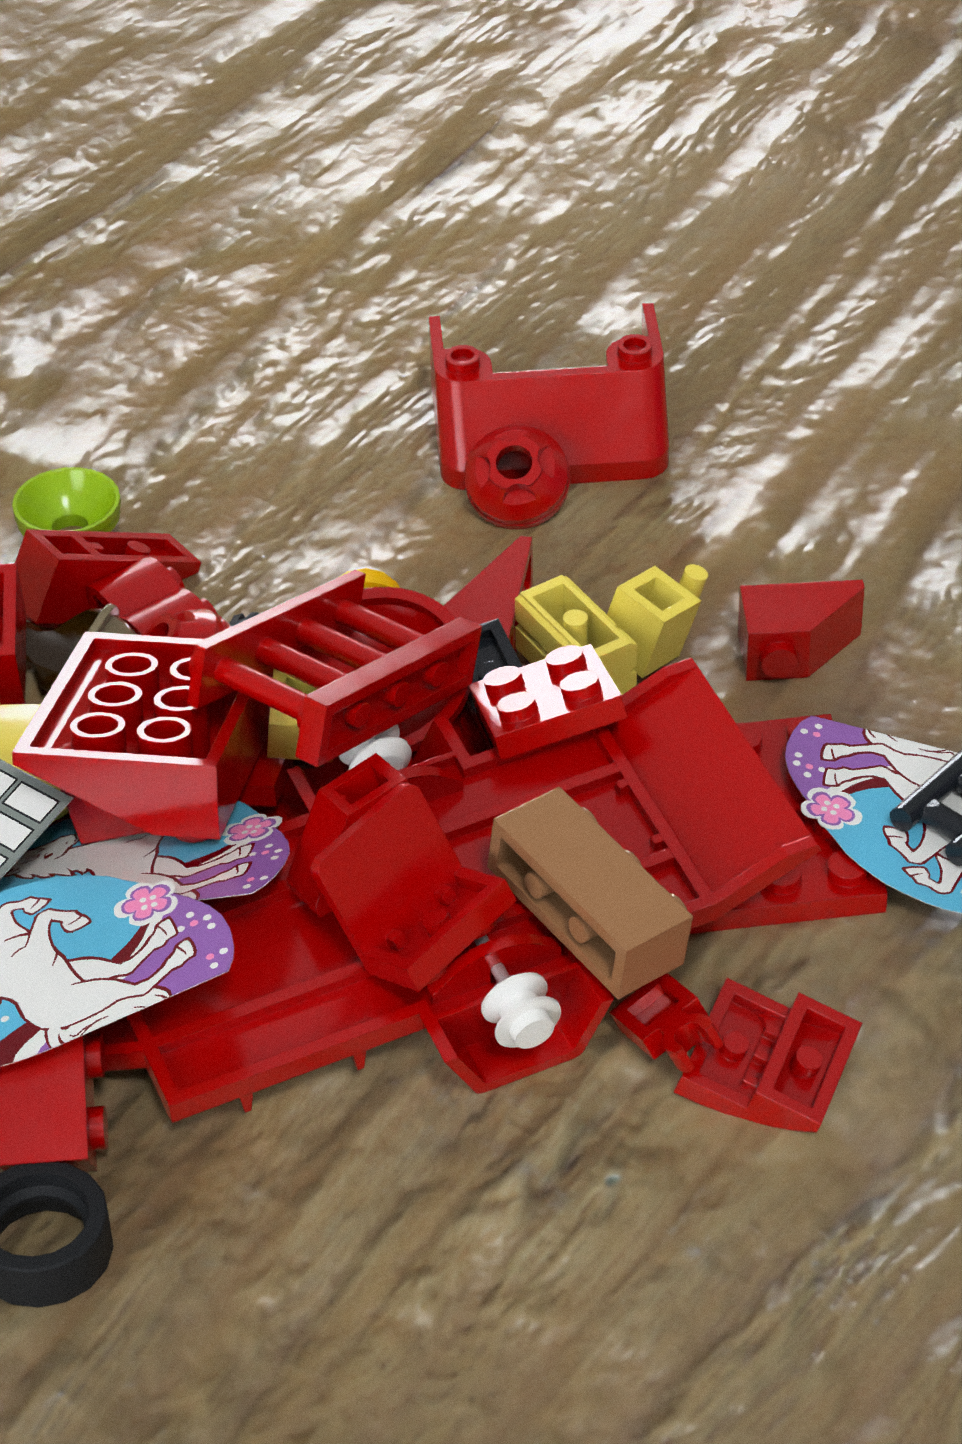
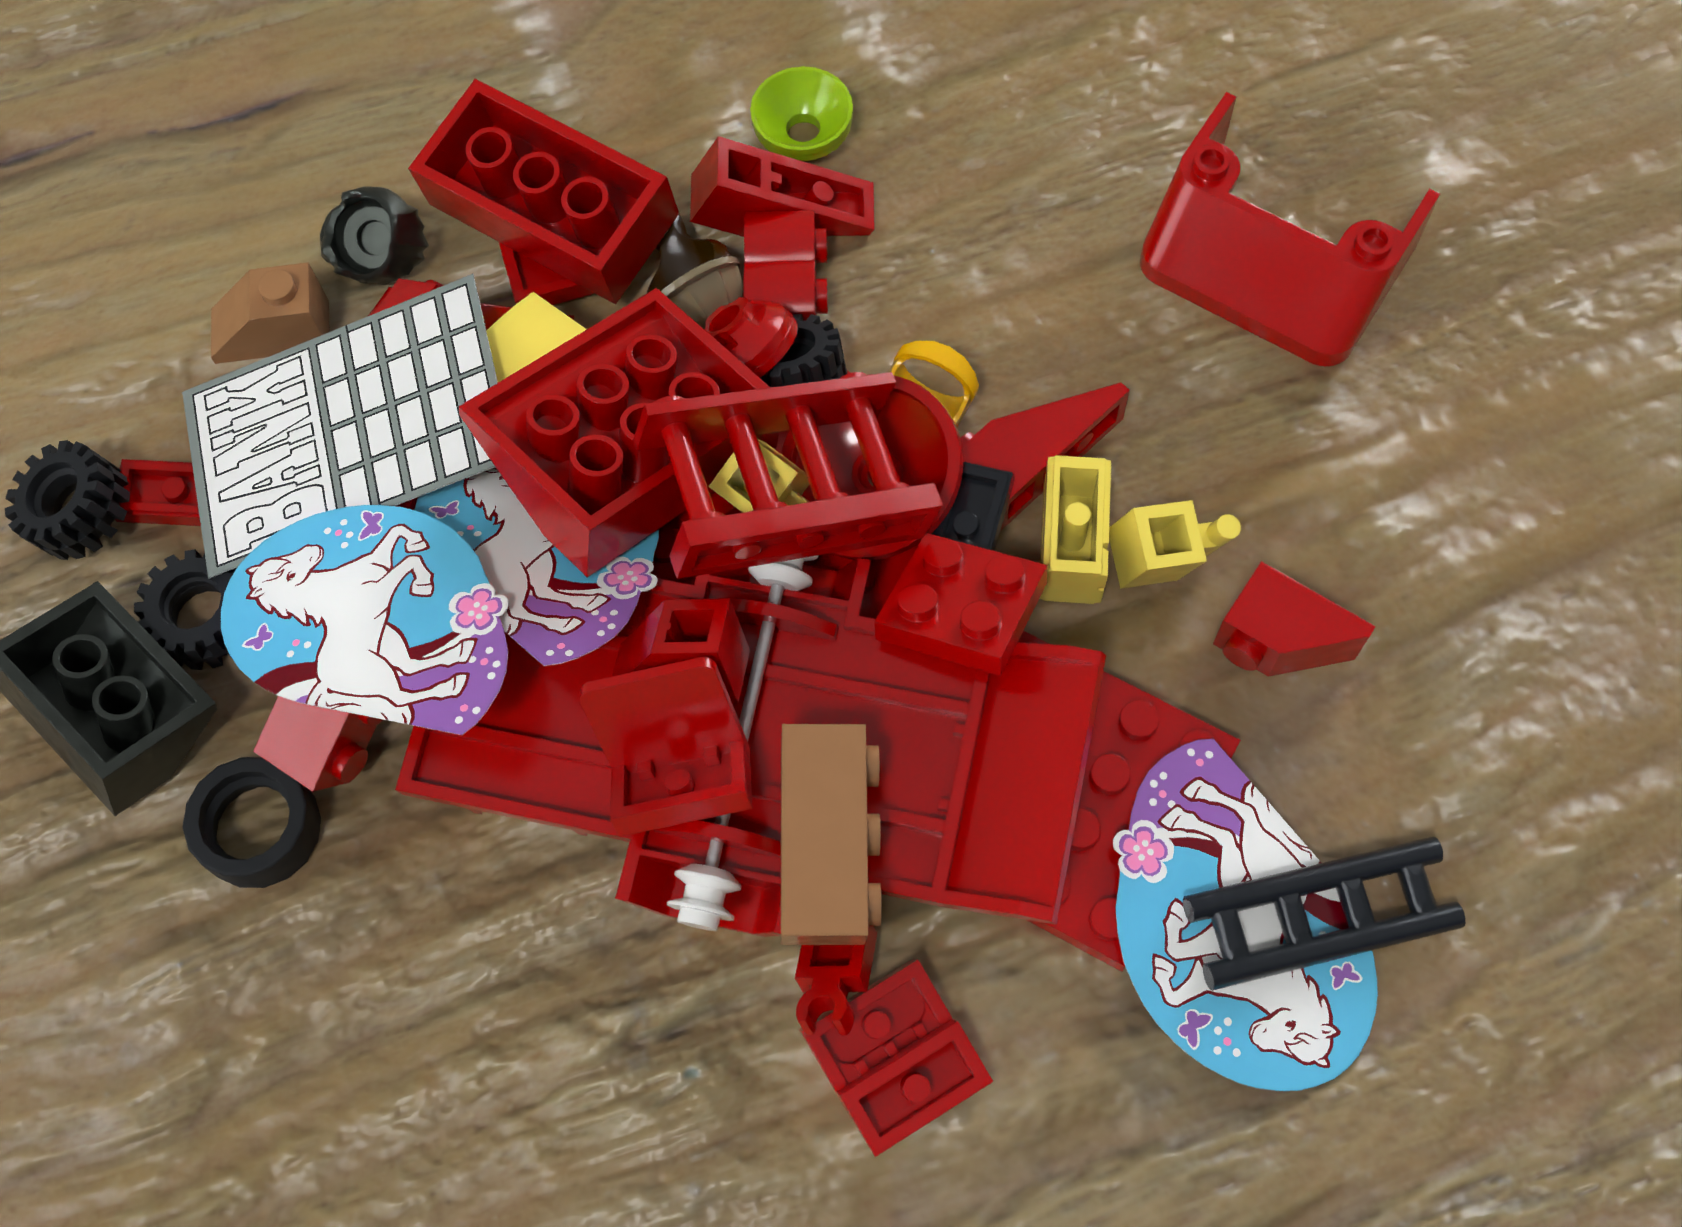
camera: 40 degrees right, 25 degrees up
(524, 500) = (1209, 321): red piece -> none

